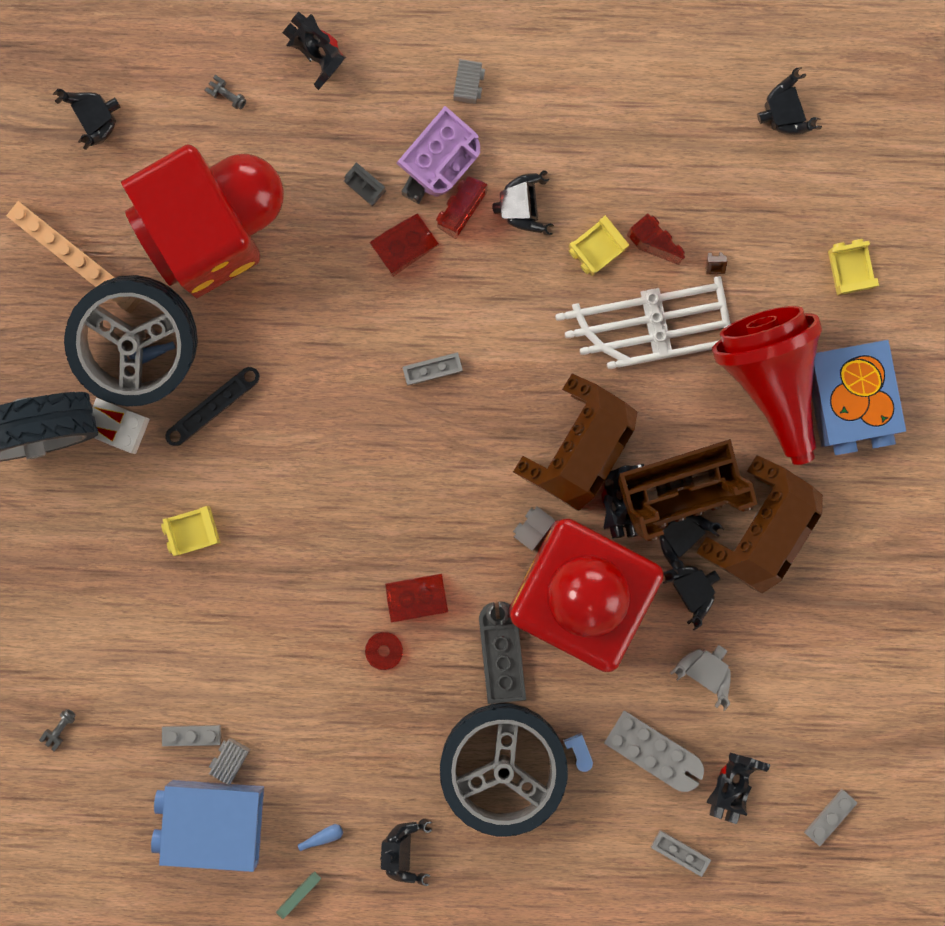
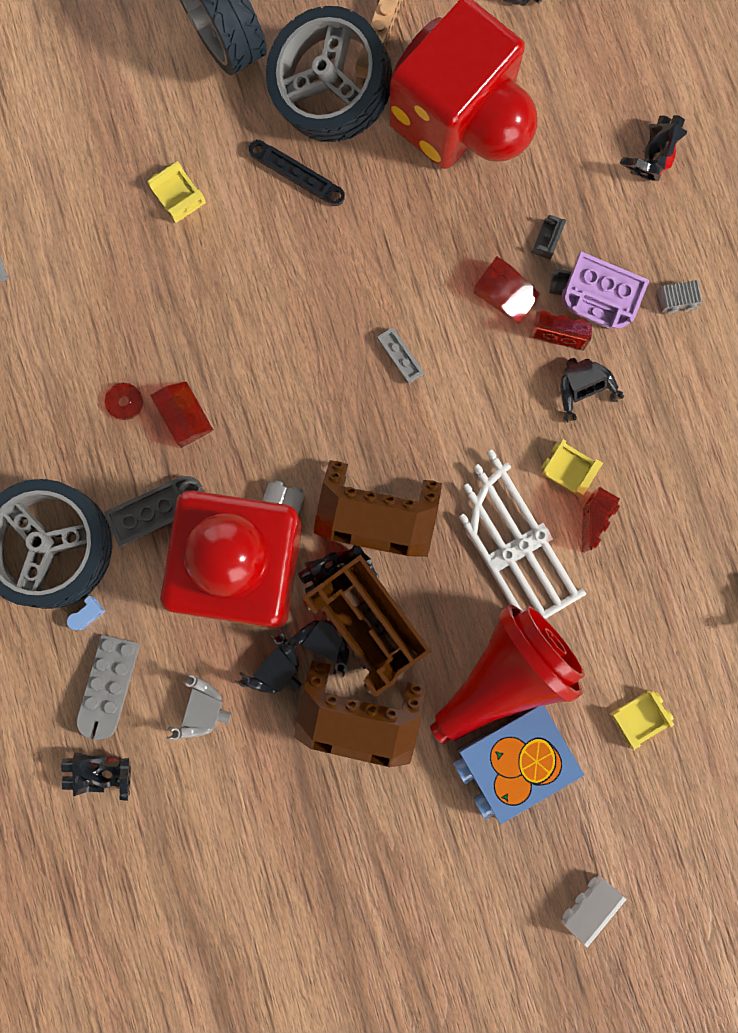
camera: 70 degrees right, 5 degrees down
(119, 426) = (248, 98): white slope -> none
(154, 351) = (325, 102): medium blue piece -> none
(238, 101) = (582, 100): dark grey hinge -> none
(680, 853) = (18, 745): light grey plate -> none
(716, 264) = (595, 585): reddish brown tile -> none
(830, 817) = (99, 882): light grey plate -> none

